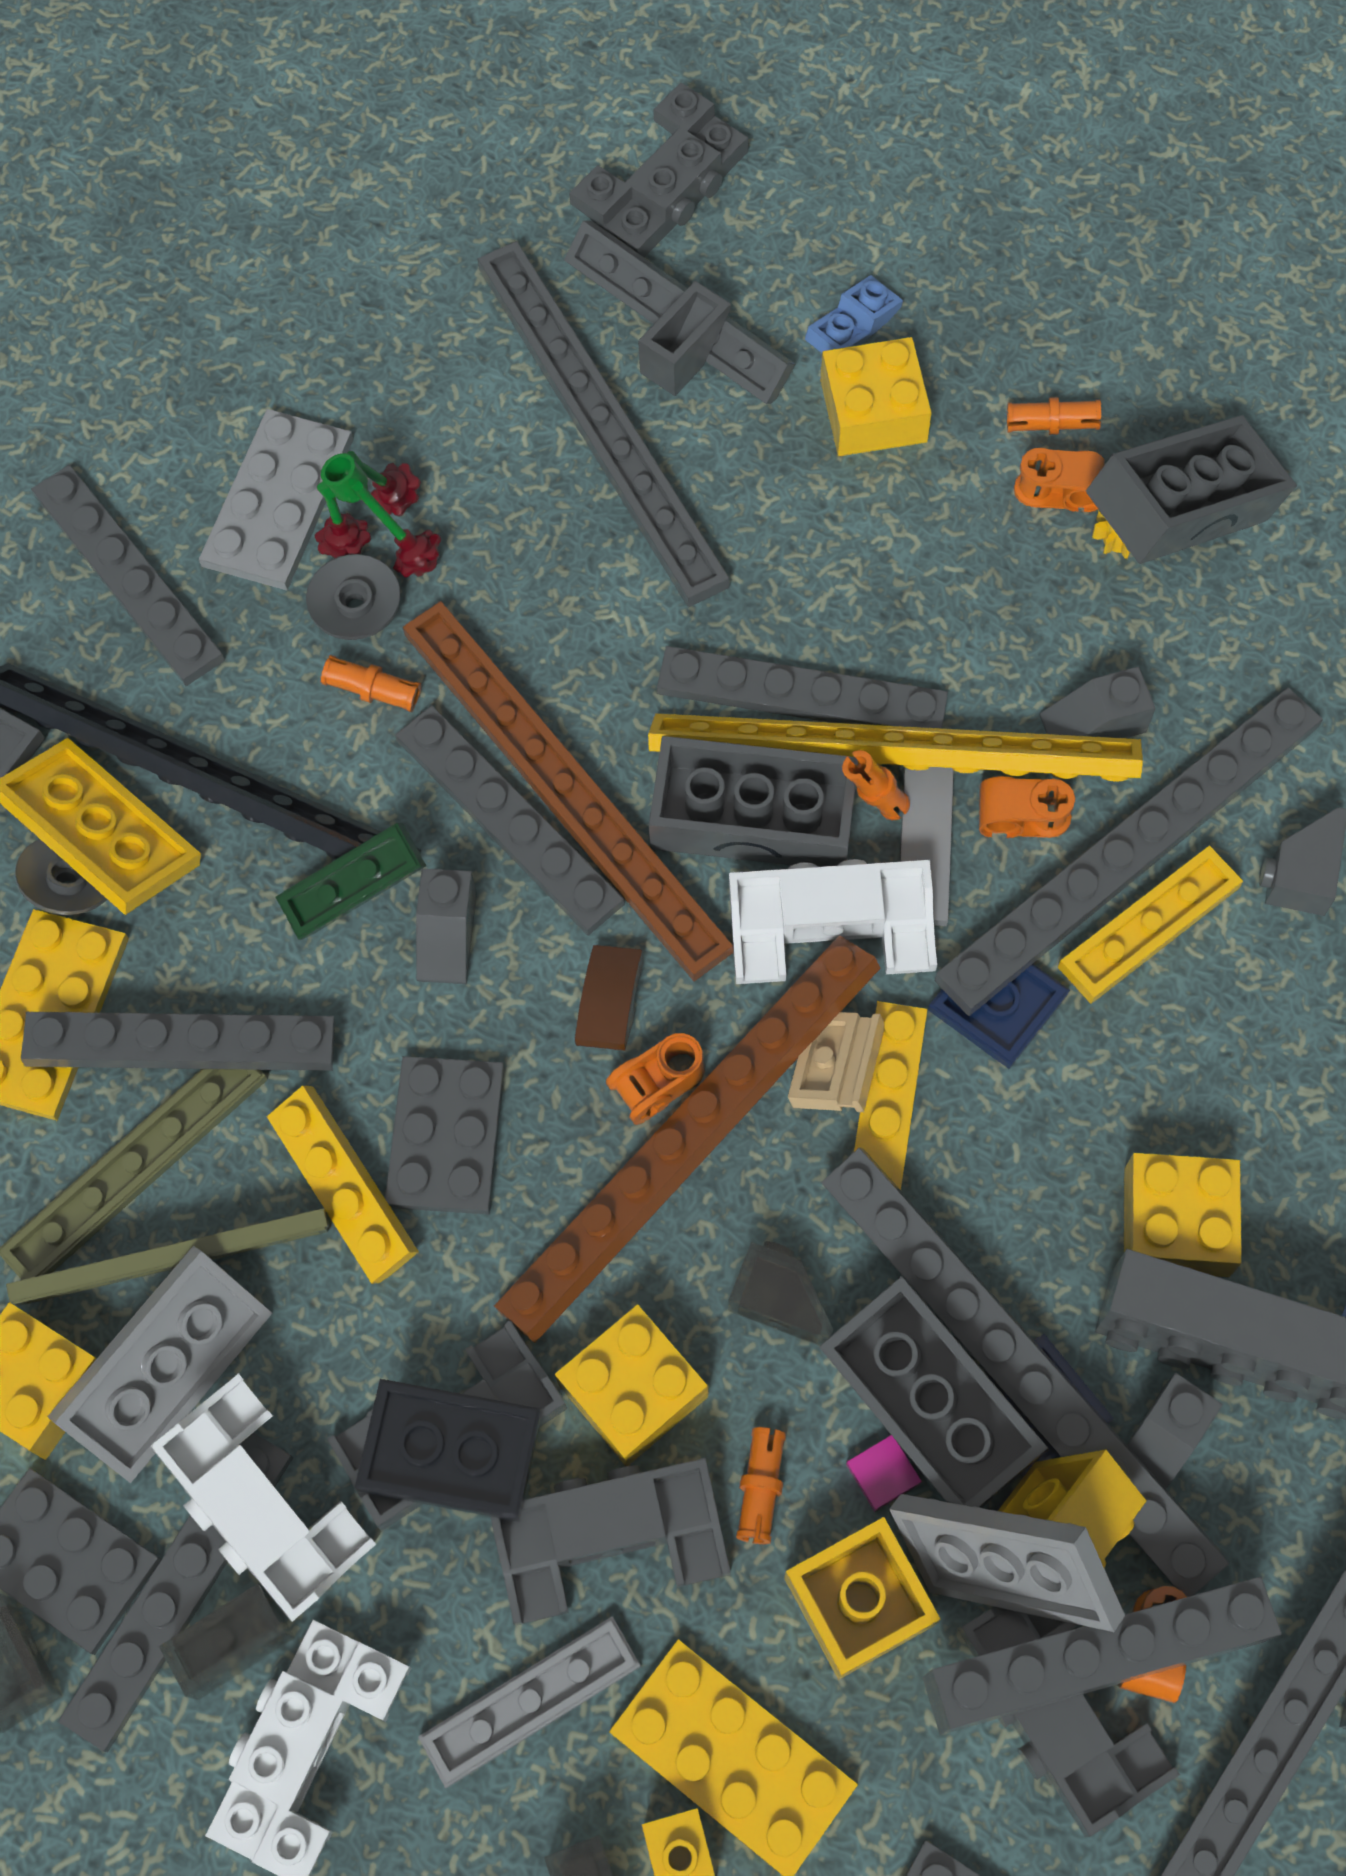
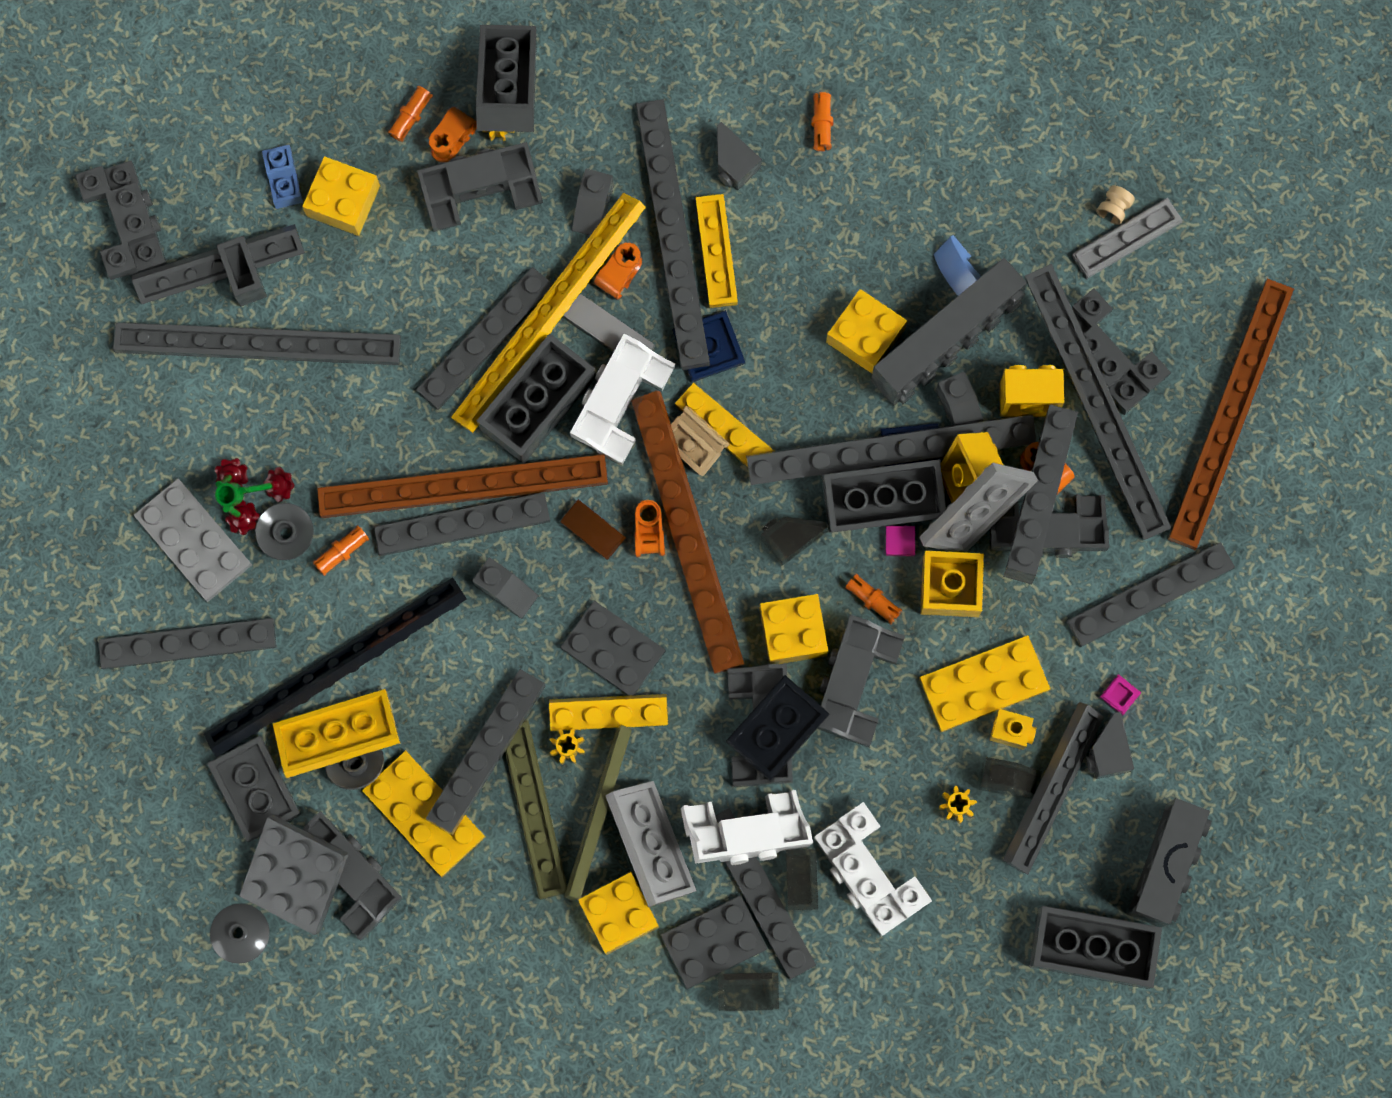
camera: 60 degrees left, 10 degrees up
(265, 1159) = (563, 738): none -> yellow gear
(350, 881) = (453, 620): dark green tile -> none
(514, 1836) = (963, 797): none -> yellow gear
(529, 1702) = (907, 760): light grey tile -> none
(876, 785) = (568, 334): orange pin -> none
(1023, 544) = (477, 177): none -> dark grey bracket
(1267, 1534) = (1030, 390): none -> yellow brick

